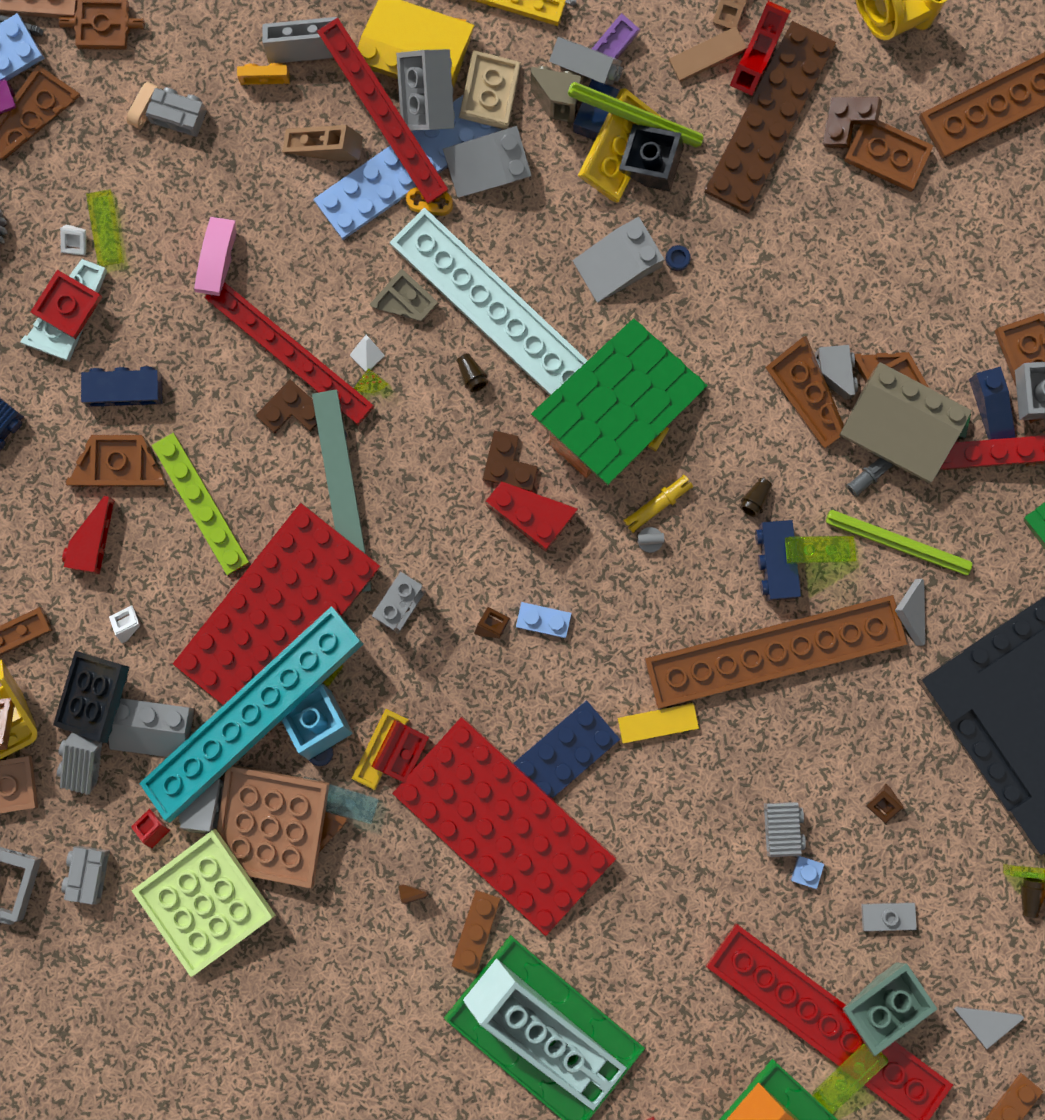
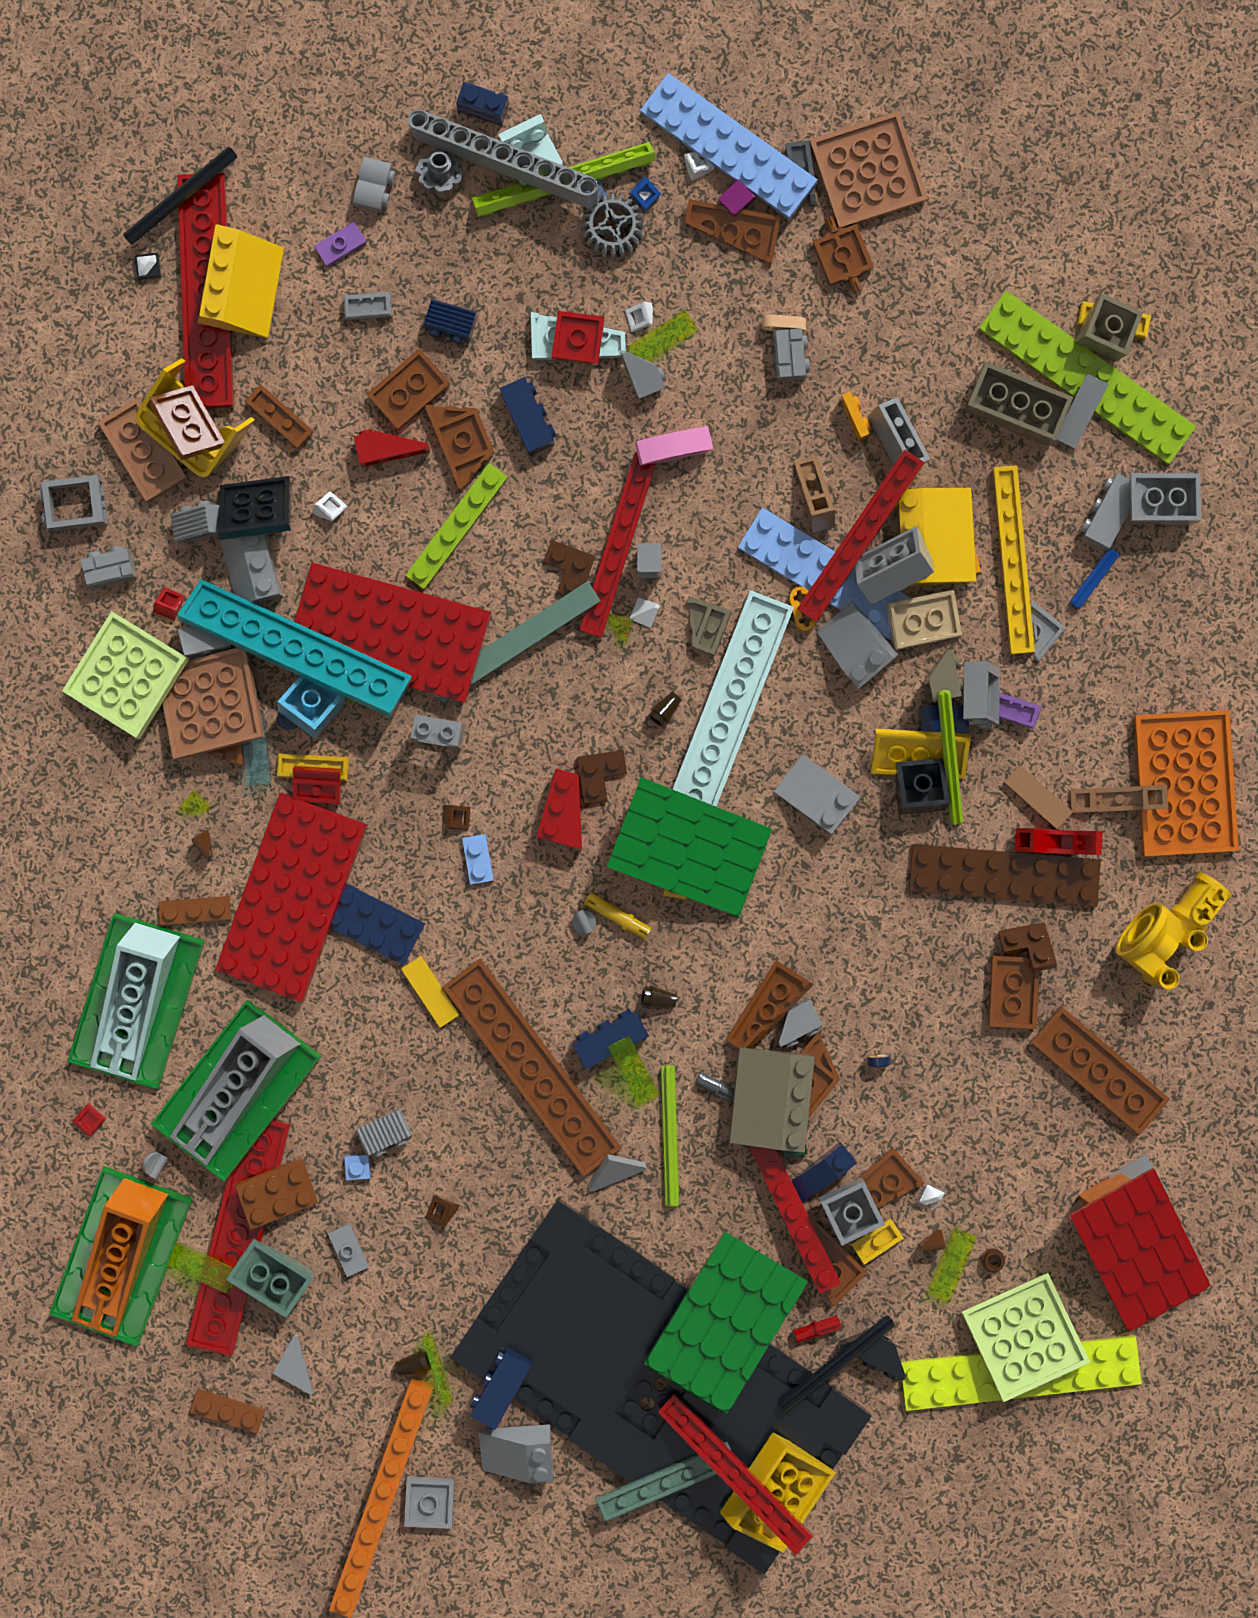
camera: 70 degrees right, 5 degrees up
(42, 494) = (408, 389): none -> dark orange plate
(131, 258) = (643, 374): none -> light grey slope
(317, 325) = (649, 560): none -> light grey panel
(366, 887) = (194, 804): none -> clear neon green tile
(678, 258) = (842, 845): dark blue tile -> none
(679, 966) = (236, 1090): none -> piece
(721, 1084) = (154, 1164): none -> light grey plate
(802, 967) = (276, 1193): none -> dark orange plate
(904, 307) = (878, 1060): none -> dark blue tile

